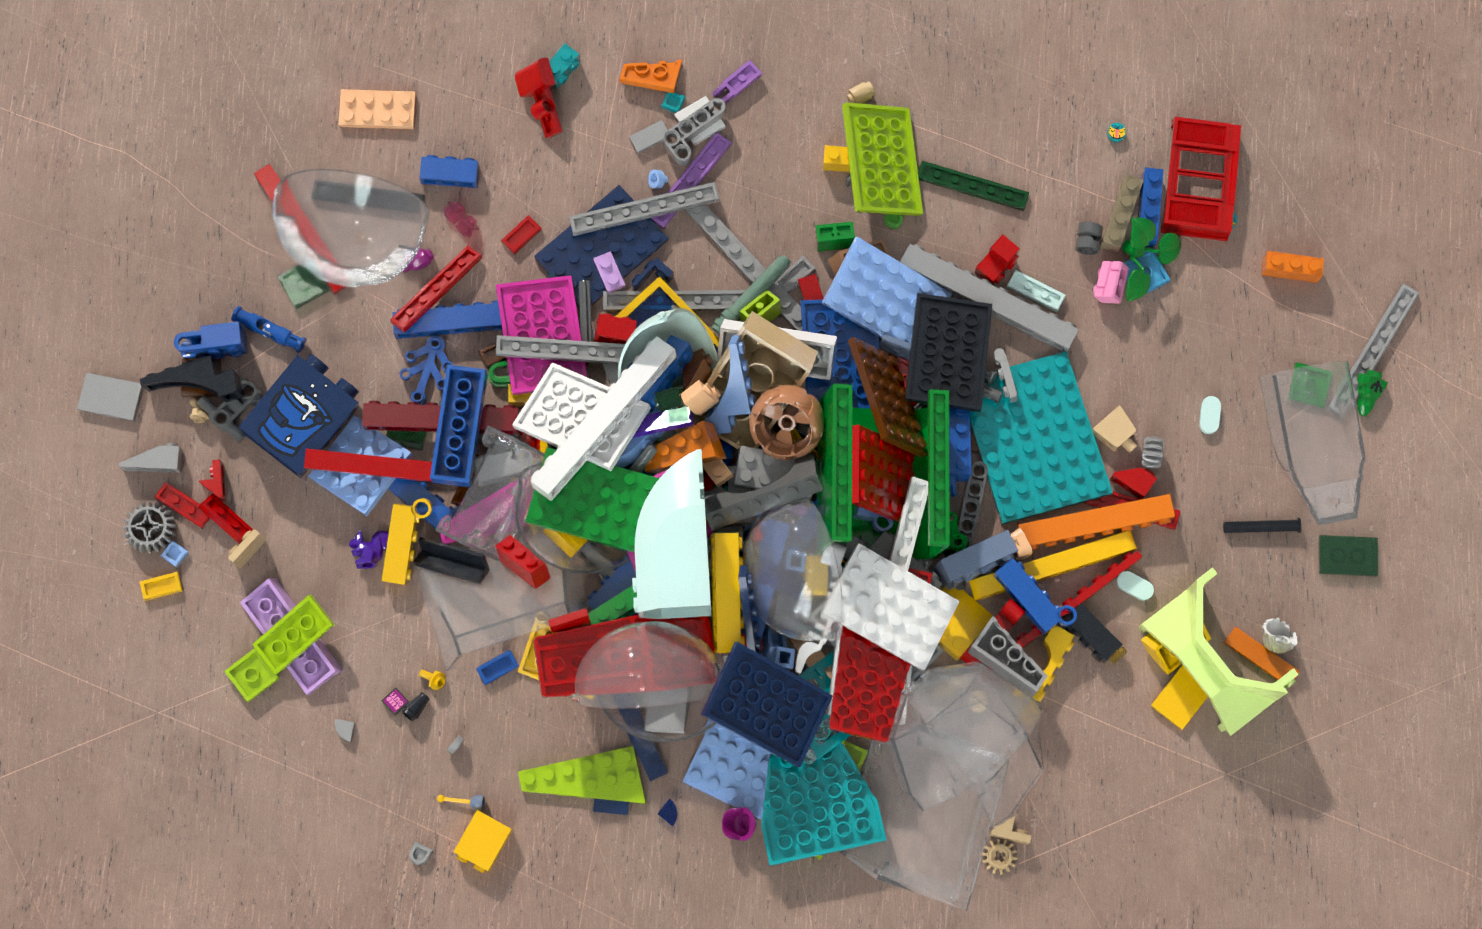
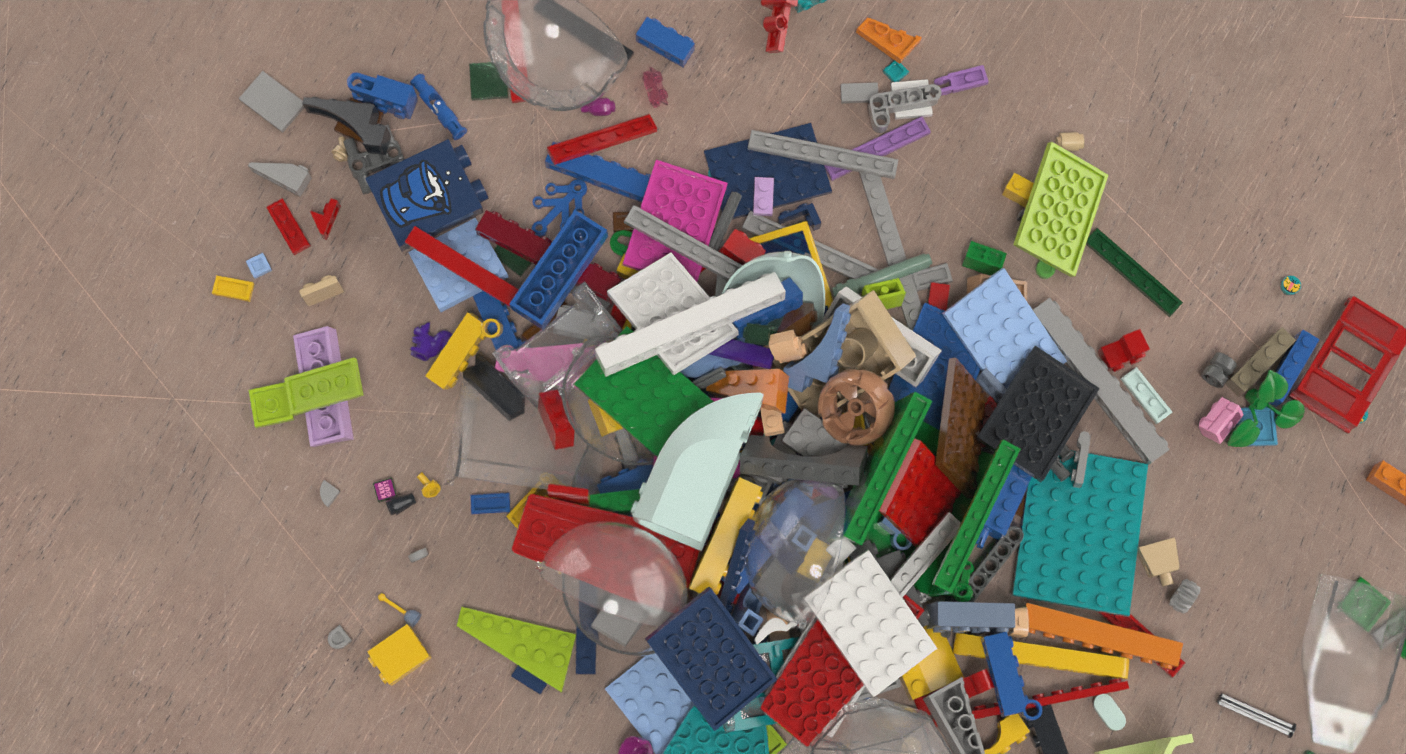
camera: 25 degrees right, 0 degrees up
(148, 512) = (252, 218): light grey gear -> none
(225, 517) = (317, 253): red plate -> none
(521, 234) = (702, 127): red tile -> none
(657, 179) = (847, 133): light blue tile -> none
(669, 812) = (578, 711): clear blue tile -> none
(1135, 481) = (1156, 615): red slope -> none
(1209, 415) = (1255, 587): light aqua tile -> none

